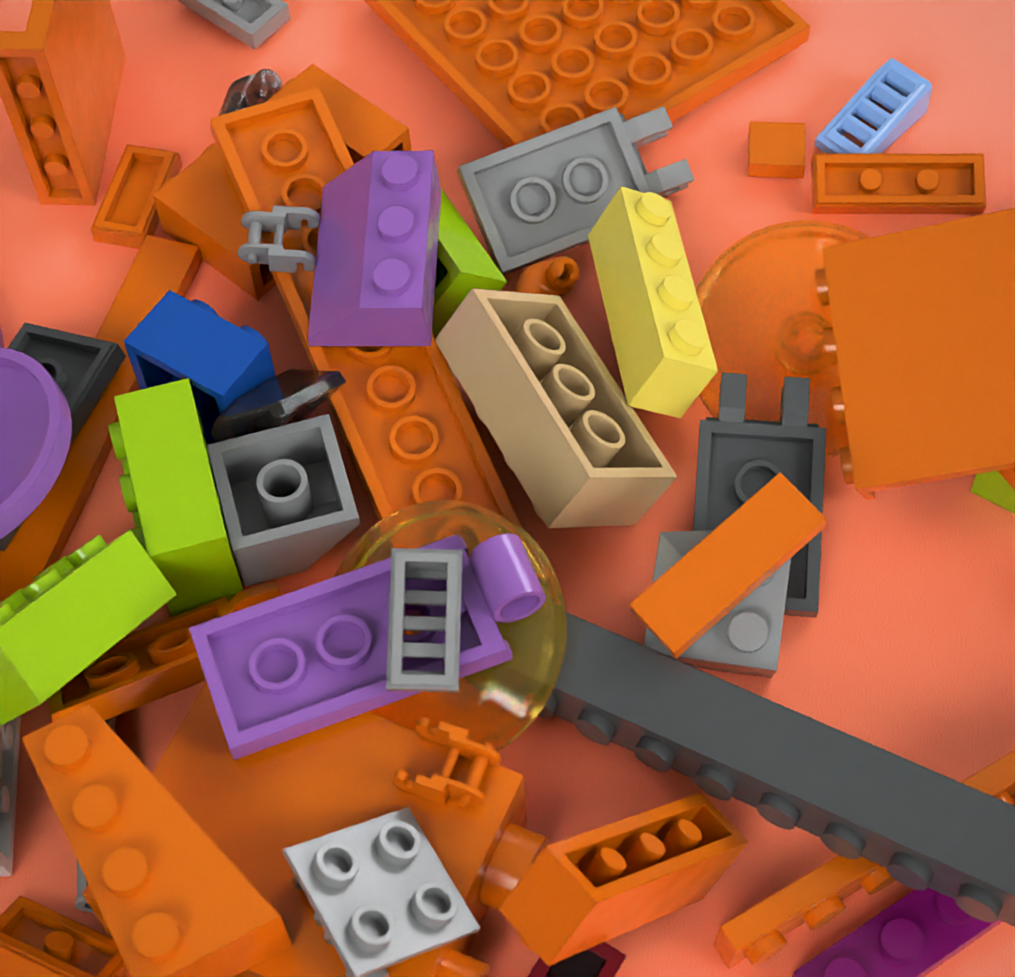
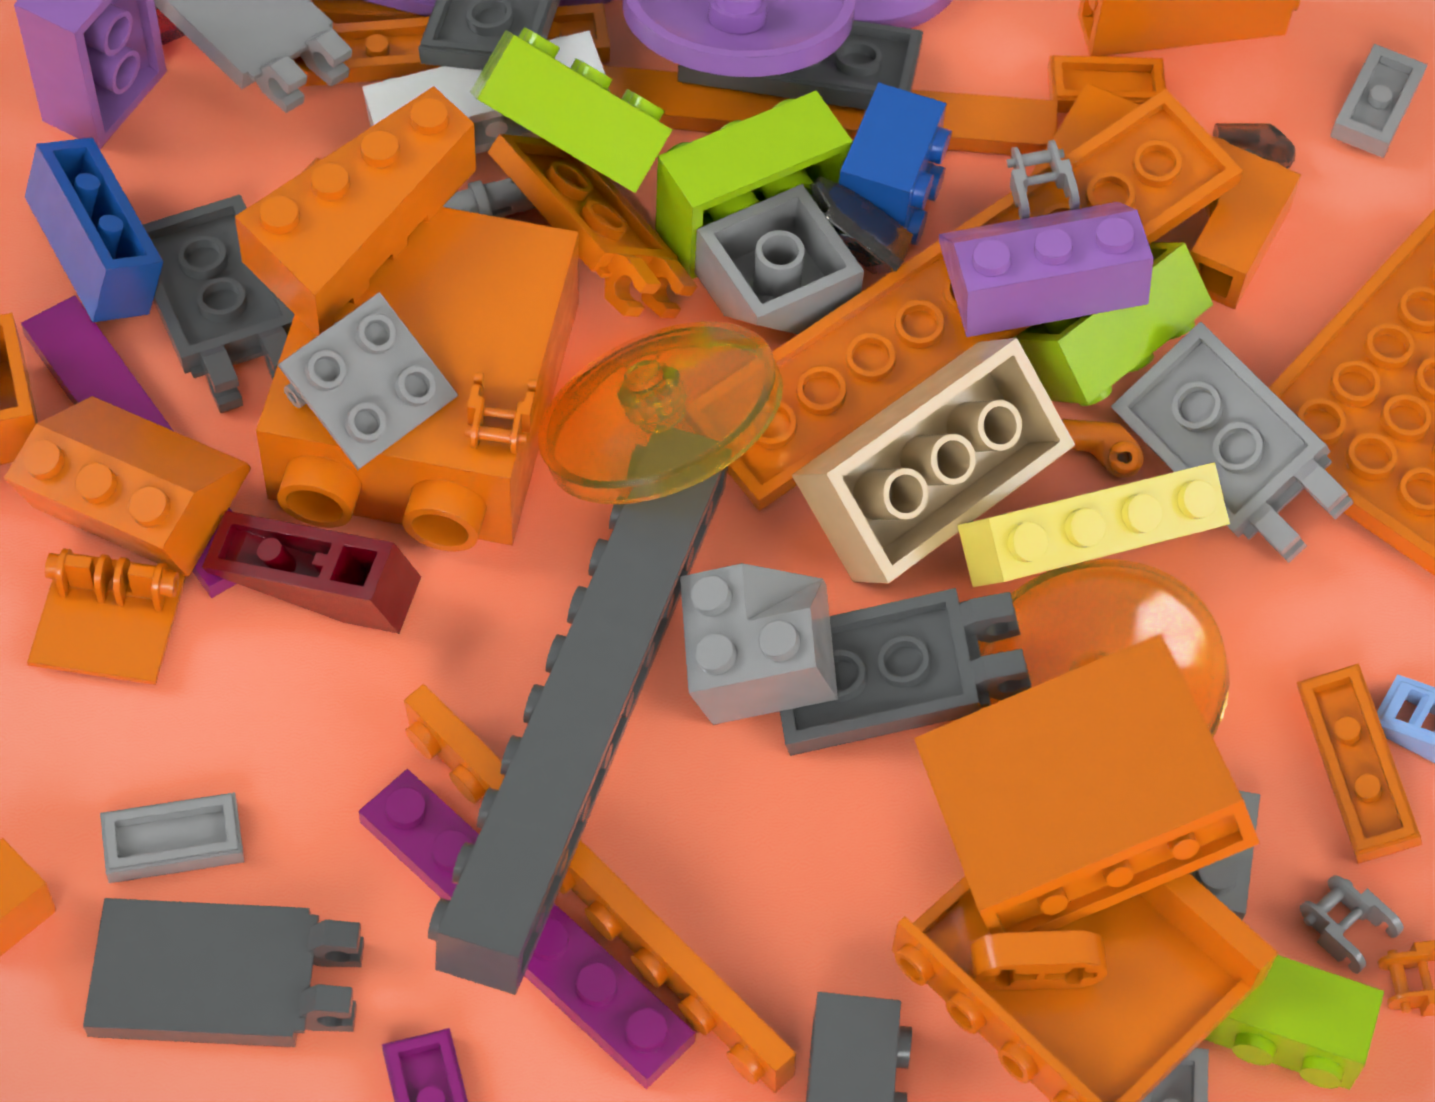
camera: 70 degrees right, 0 degrees up
(325, 646) = (588, 304): medium lavender hinge -> none
(427, 565) = (640, 368): light grey slope -> none
(621, 877) = (436, 577): orange brick -> none
(728, 564) = (765, 608): orange tile -> none
(776, 149) = (1368, 637): orange tile -> none

